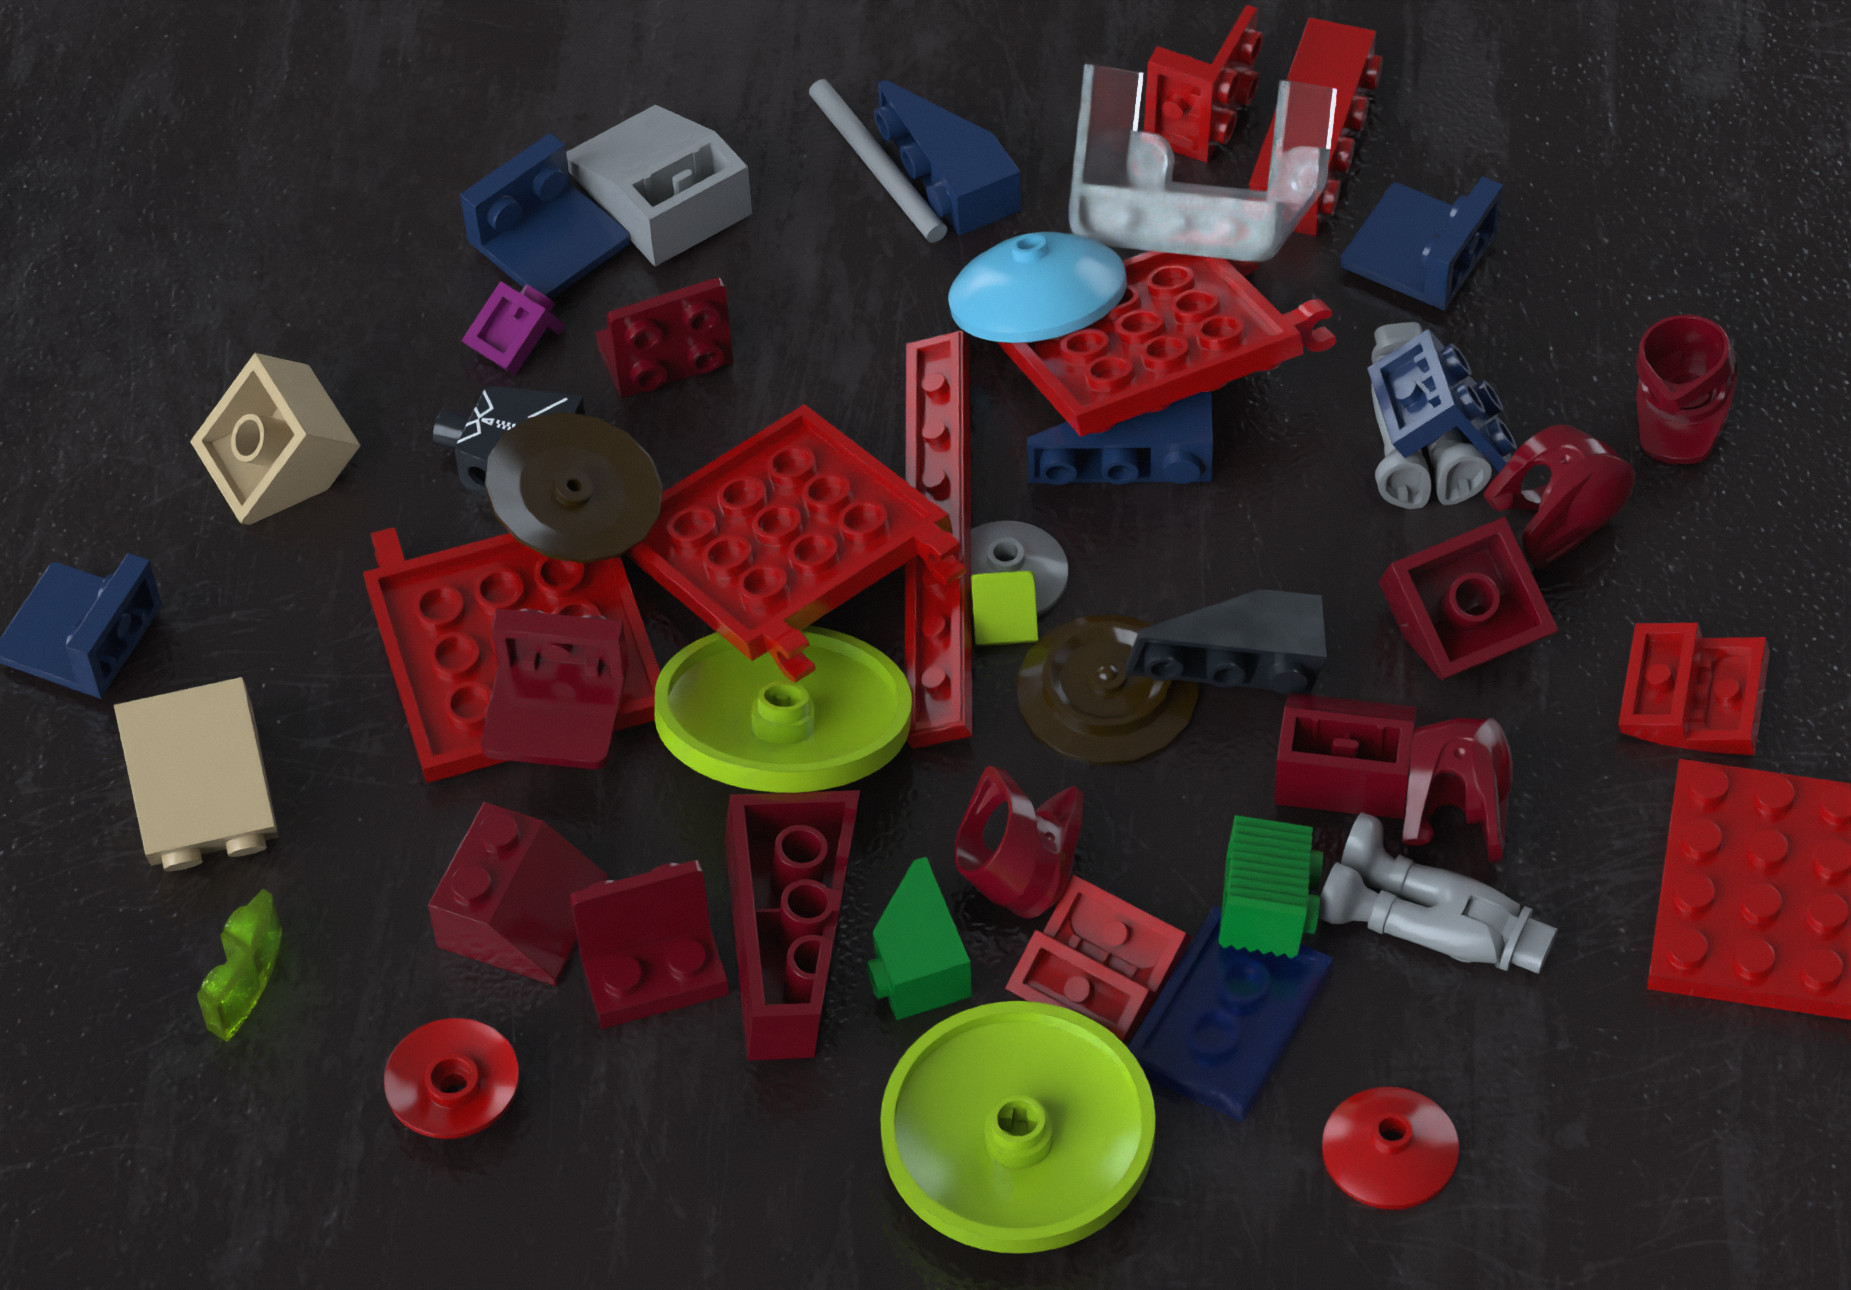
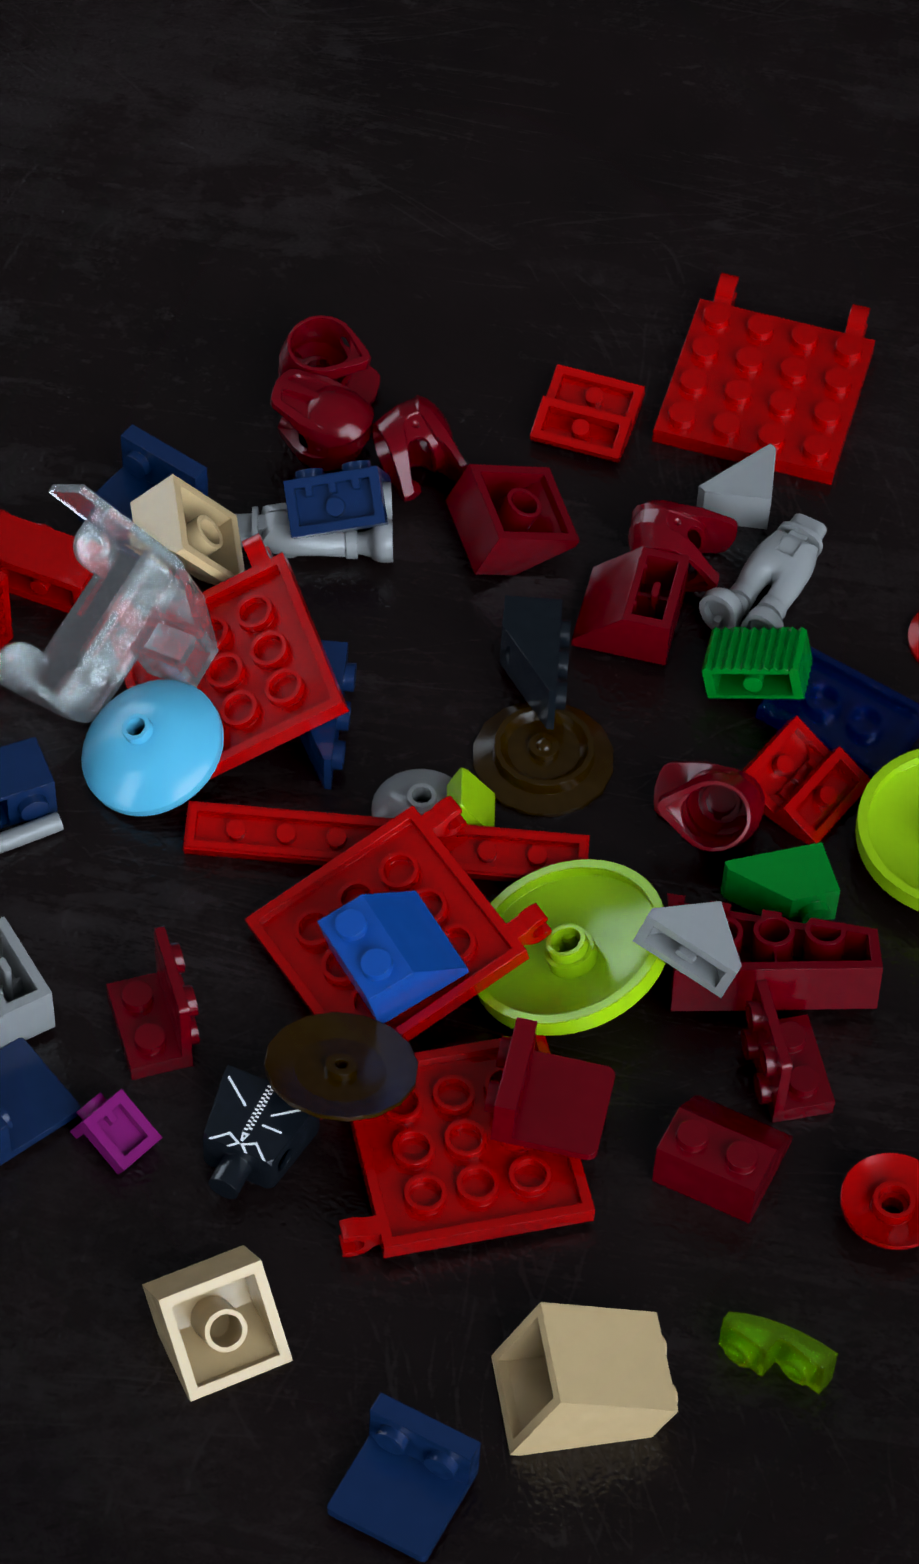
camera: 90 degrees left, 0 degrees up
(731, 511) = (391, 951): none -> blue slope
(742, 791) = (693, 942): none -> light grey slope
(1175, 265) = (178, 634): none -> clear slope
(1342, 257) = (191, 528): none -> tan slope
(1589, 376) = (326, 414): none -> dark red helmet
(1590, 870) = (743, 490): none -> light grey slope

